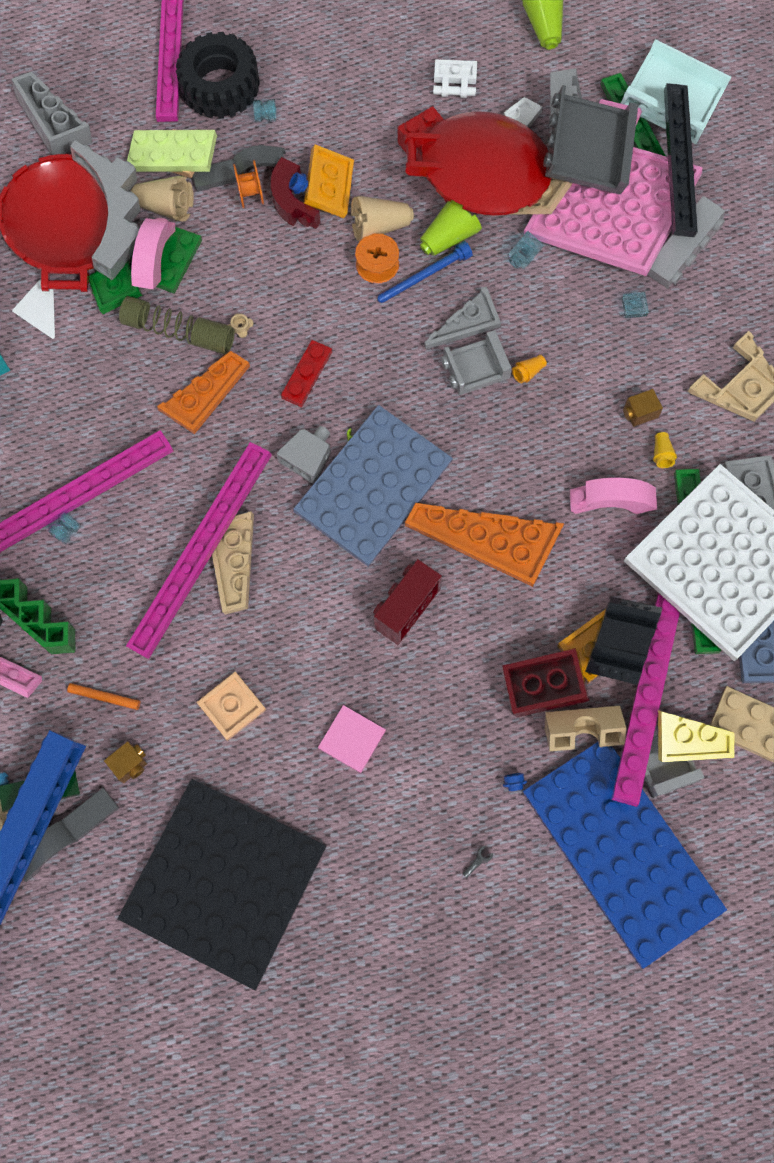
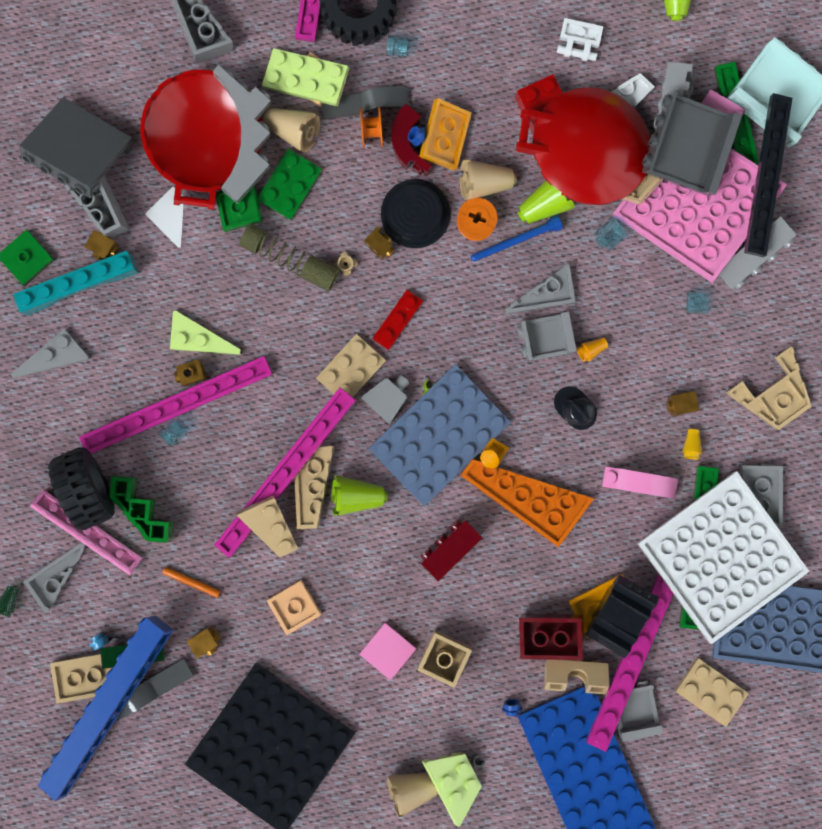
camera: 10 degrees right, 15 degrees up
(77, 425) = (190, 336): none -> yellowish green wing
(83, 464) = (197, 369): none -> pearl gold brick
(148, 252) = (274, 184): bright pink arch -> none
(189, 609) = (269, 525): none -> tan wing
(200, 398) = (305, 326): orange wing -> none
(264, 425) = (351, 367): none -> tan plate
(274, 298) = (379, 243): none -> pearl gold brick
(286, 562) = (355, 495): none -> lime cone
(309, 266) = (415, 213): none -> black piece
(410, 901) = (410, 791): none -> tan cone
(421, 731) = (444, 658): none -> tan brick
(439, 493) = (493, 453): none -> light orange plate
(460, 884) = (454, 783): none -> yellowish green wing
(523, 434) = (575, 408): none -> black piece
(691, 740) = (659, 701): light yellow wing -> none

